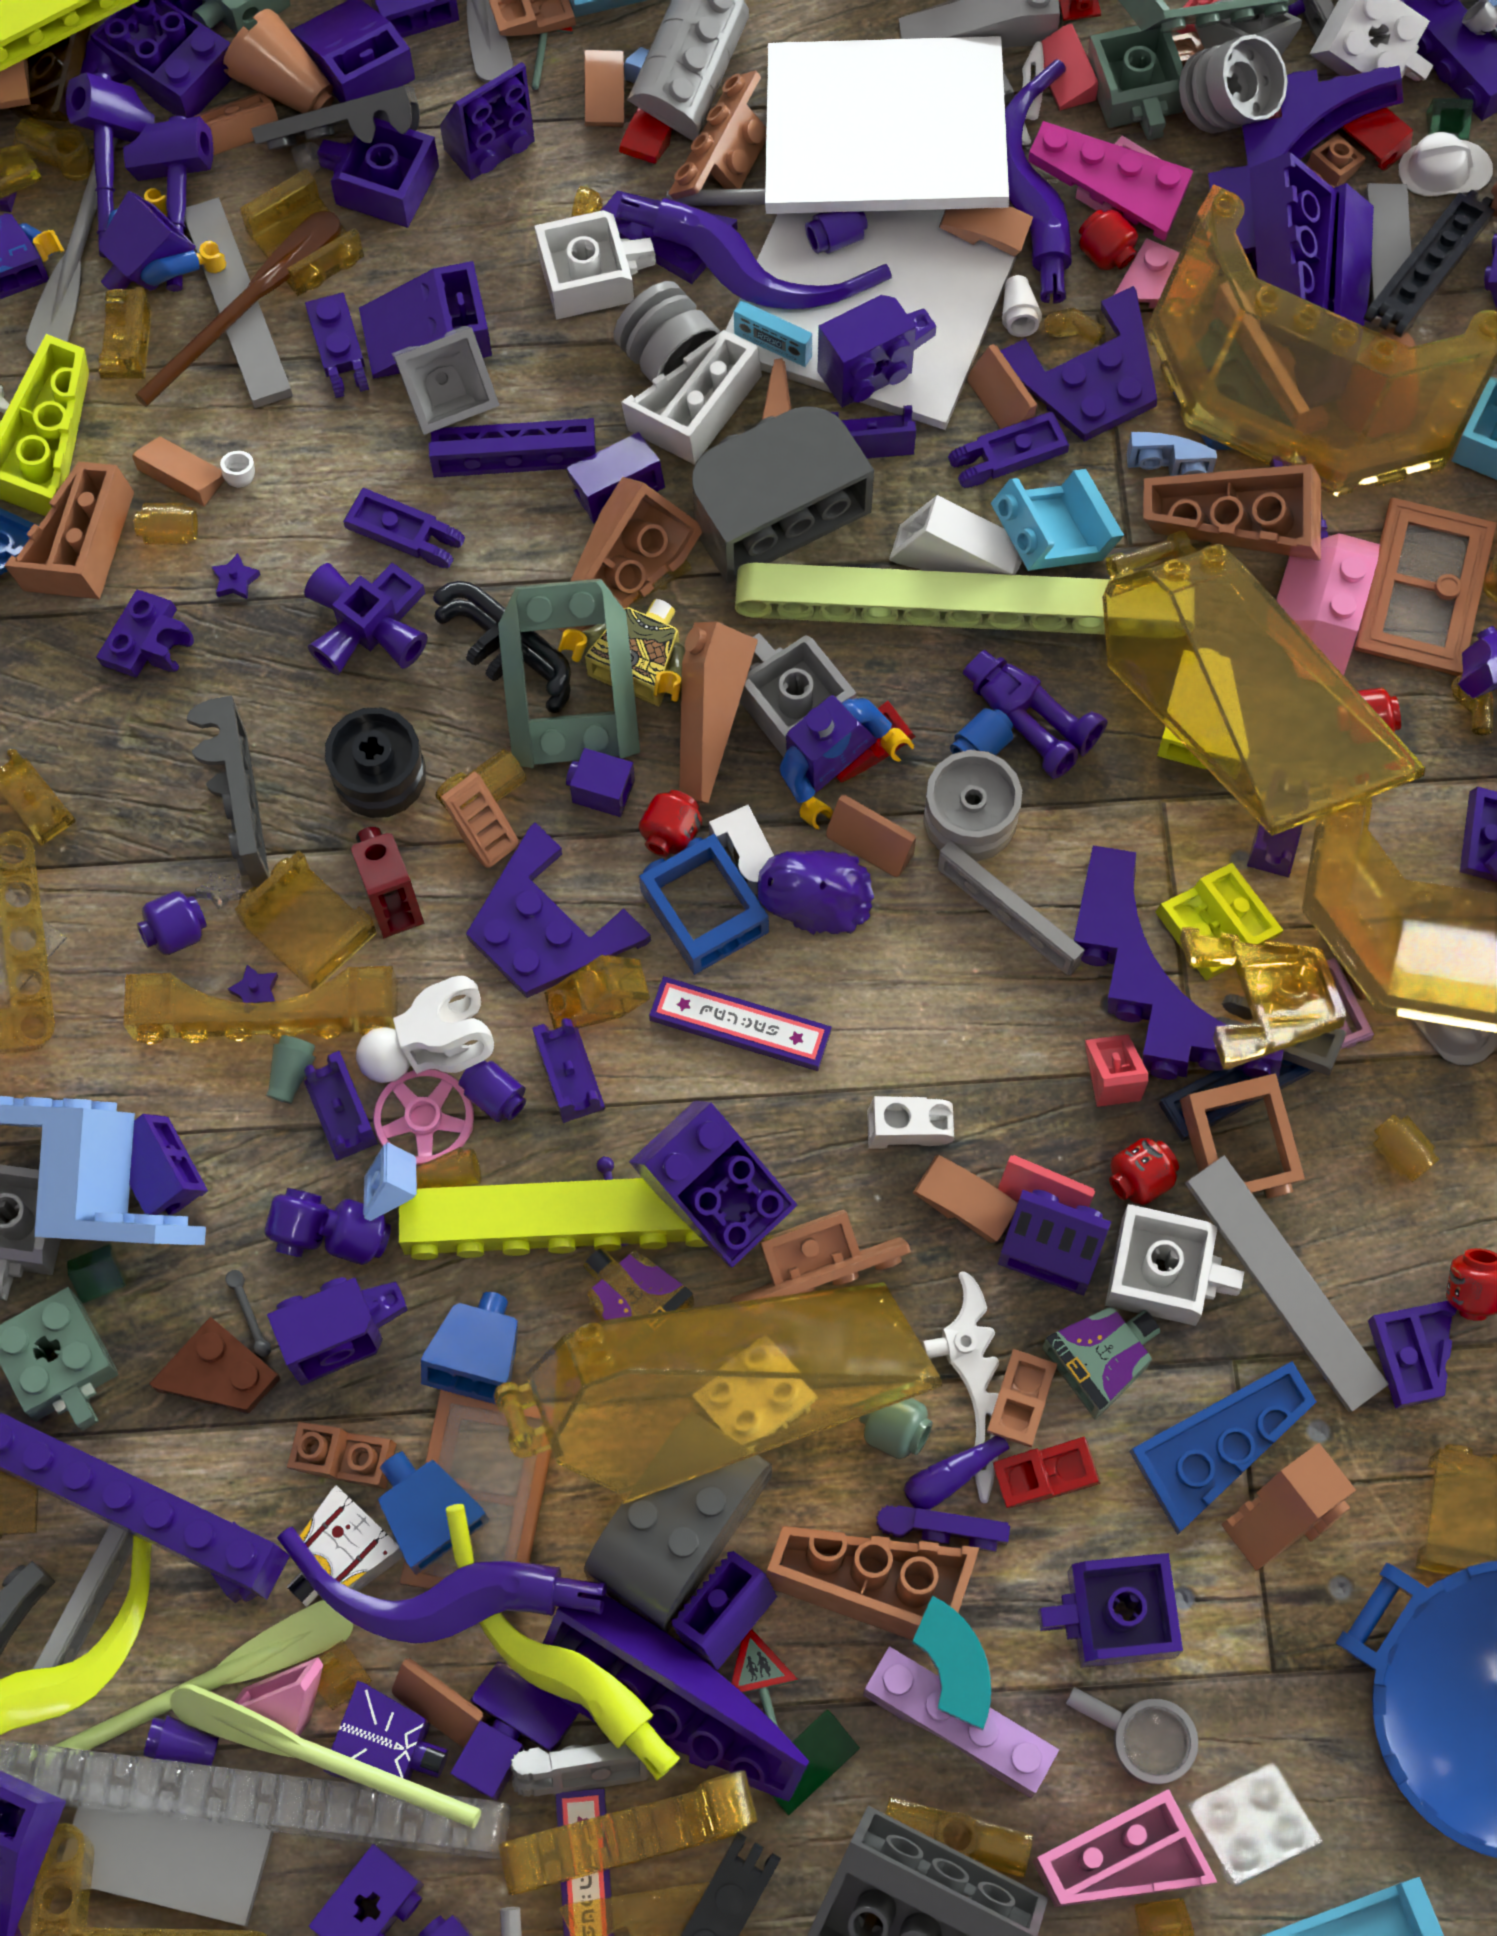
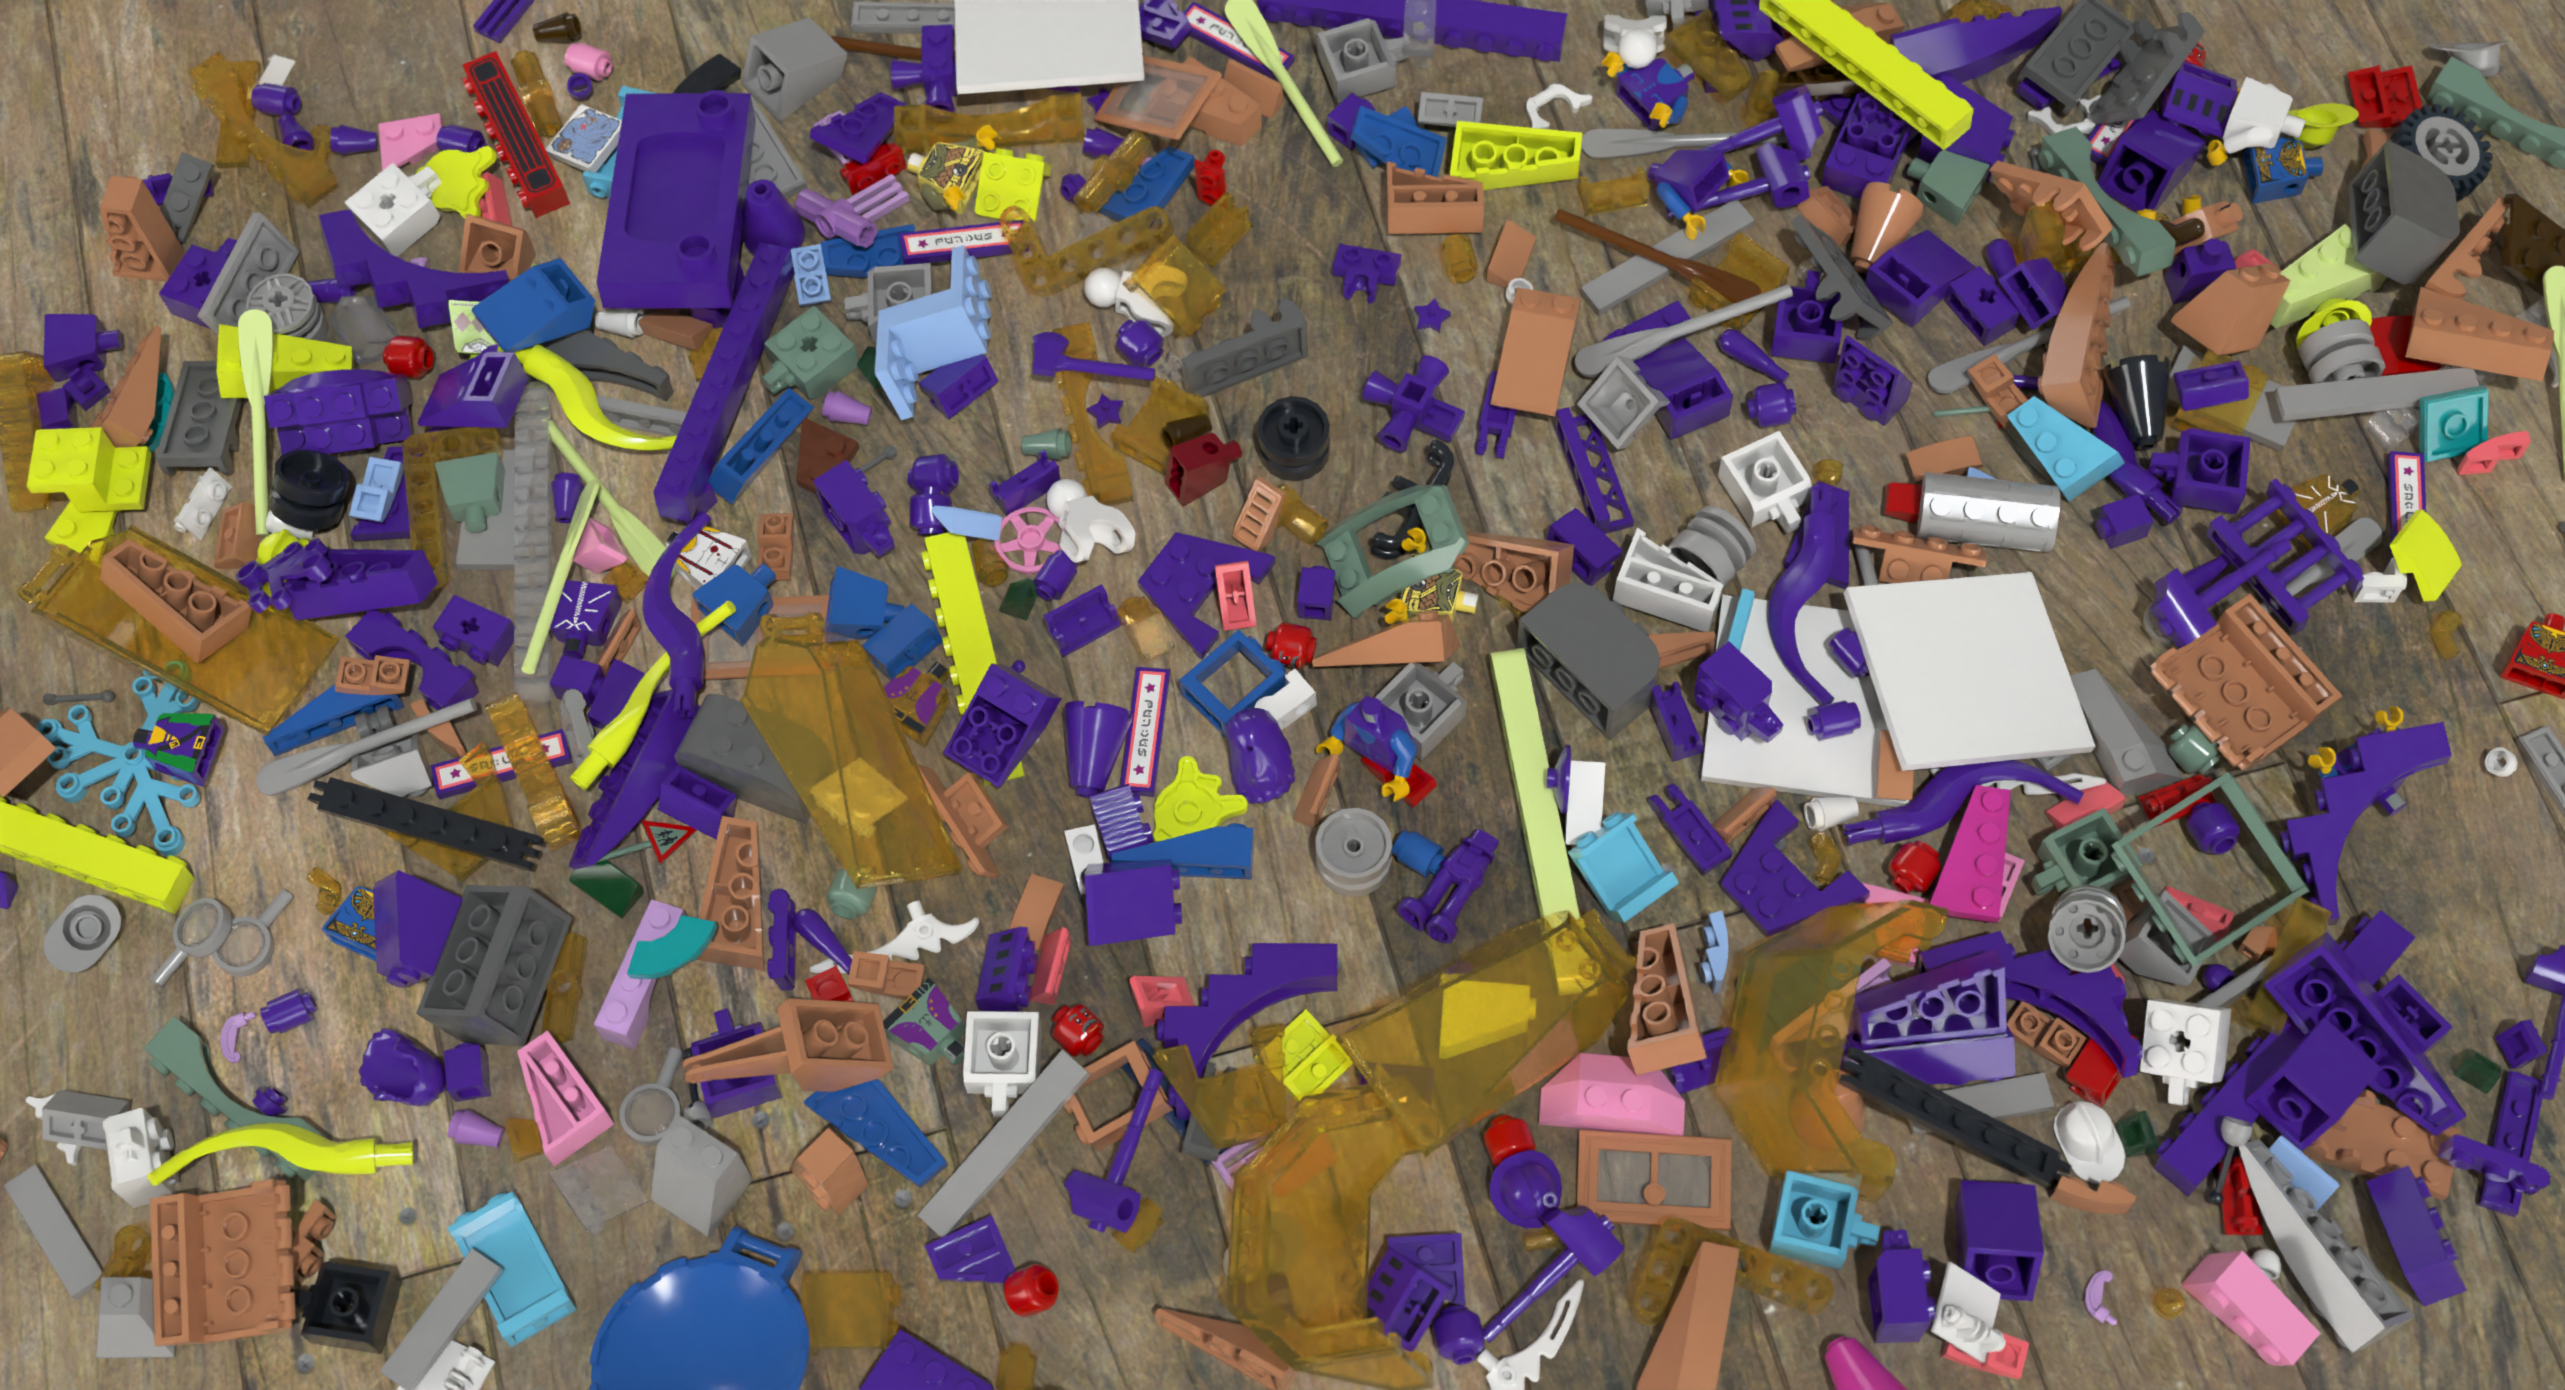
camera: 80 degrees right, 5 degrees down
(94, 915) = (1105, 289): none -> white piece
(103, 854) = (1177, 285): none -> clear yellow panel
(135, 1880) = (472, 488): none -> sand green torso
(152, 1326) = (843, 408): none -> medium lavender cone
(175, 1033) = (1050, 358): none -> dark purple piece
(180, 1449) = (759, 446): none -> blue slope
(325, 891) = (1185, 429): none -> dark brown cone
(336, 461) = (1536, 351): none -> nougat slope
(361, 369) = (1597, 357): none -> light grey piece
(399, 248) = (1748, 353): none -> dark purple piece
(483, 236) = (1772, 405): none -> dark purple head
(508, 1147) = (1019, 599): none -> clear green slope
(537, 1301) = (903, 642): none -> blue hinge
(582, 877) = (1235, 595): none -> coral slope
(757, 1082) = (1093, 743): none -> dark purple cone
(858, 989) = (1193, 803): none -> neon yellow tile
(867, 1070) = (1119, 819): none -> dark purple brick
(915, 268) = (1834, 720): none -> dark purple brick
(932, 969) = (1205, 854): none -> blue slope
(934, 550) = (1559, 779): none -> dark purple dish
(991, 1073) = (1131, 900): none -> dark purple slope
(1010, 908) = (1277, 897): light grey tile -> none
(1127, 1476) = (824, 1042): none -> nougat slope
(1167, 1678) = (696, 1111): none -> light grey hinge
(1274, 1680) = (697, 1176): none -> light grey slope
(1382, 1170) = (1107, 1201): none -> dark purple piece
(1433, 708) = (1526, 1188): none -> dark purple helmet

